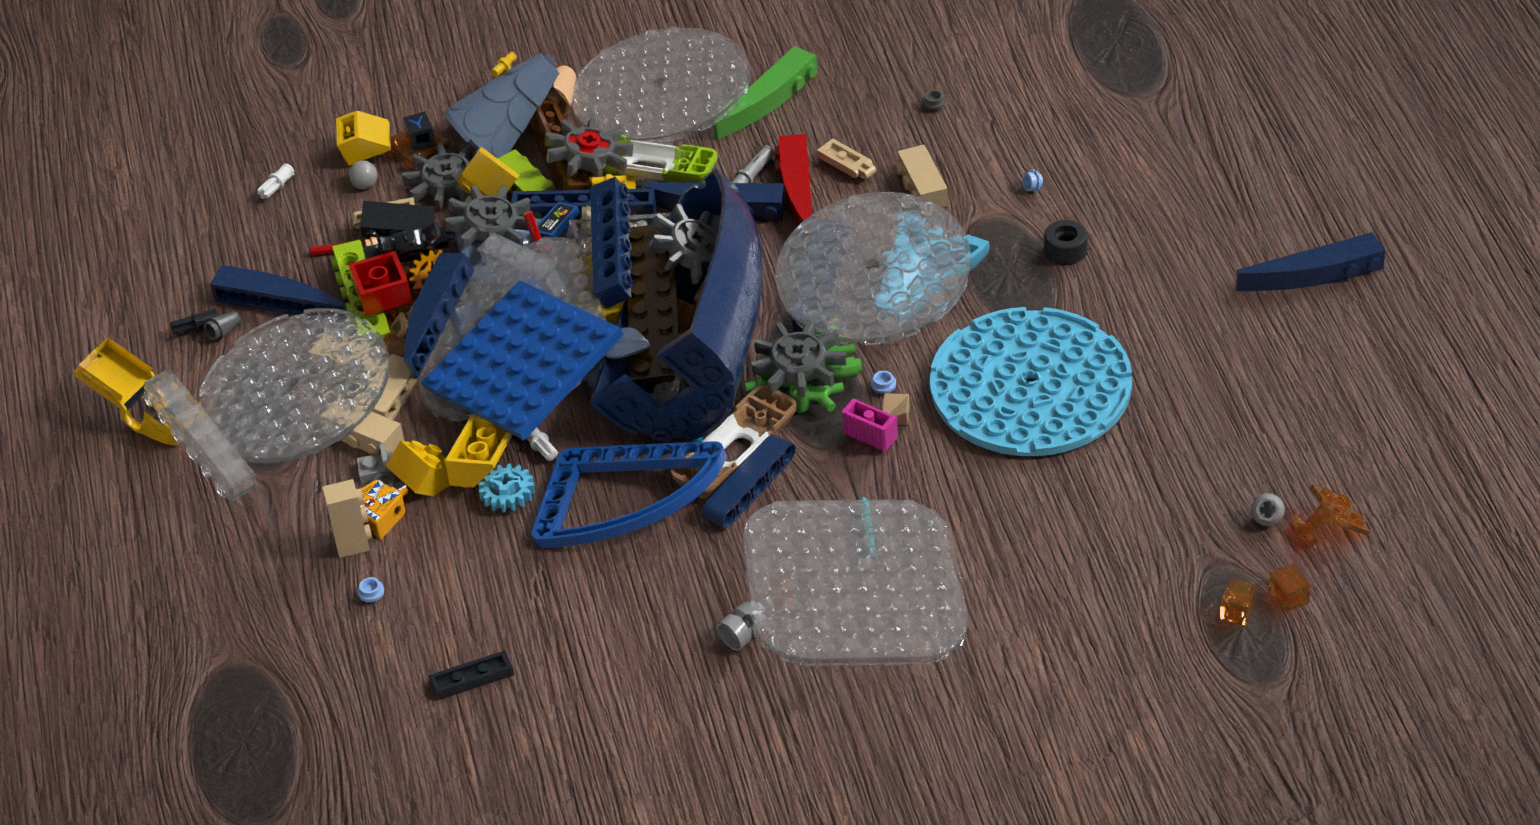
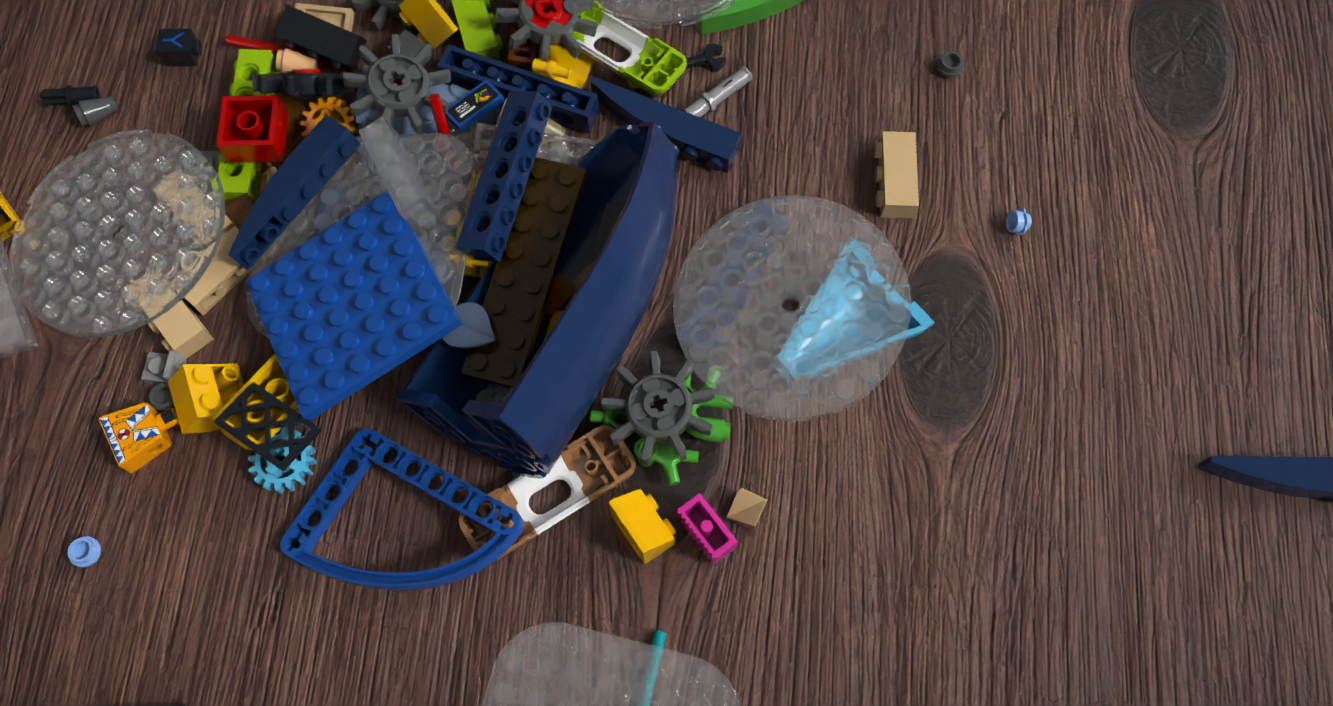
camera: 15 degrees right, 25 degrees up
(268, 292) = (154, 80): dark blue slope -> none
(274, 261) = (178, 47): none -> black brick
(347, 517) = (77, 457): tan brick -> none
(486, 439) = (295, 446): none -> black window
(540, 442) = (348, 414): white axle -> none
(687, 241) = (589, 206): dark grey gear -> none
(733, 150) = (707, 59): none -> black bar
(748, 481) = (543, 556): dark blue beam -> none
(794, 175) = (761, 121): red slope -> none
(816, 439) = (642, 524): none -> yellow slope
(846, 159) = (825, 116): tan hinge -> none
(883, 382) = (748, 461): light blue plate -> none
(1065, 242) = (1033, 314): black tyre -> none
(1076, 391) = (901, 582): medium azure plate -> none

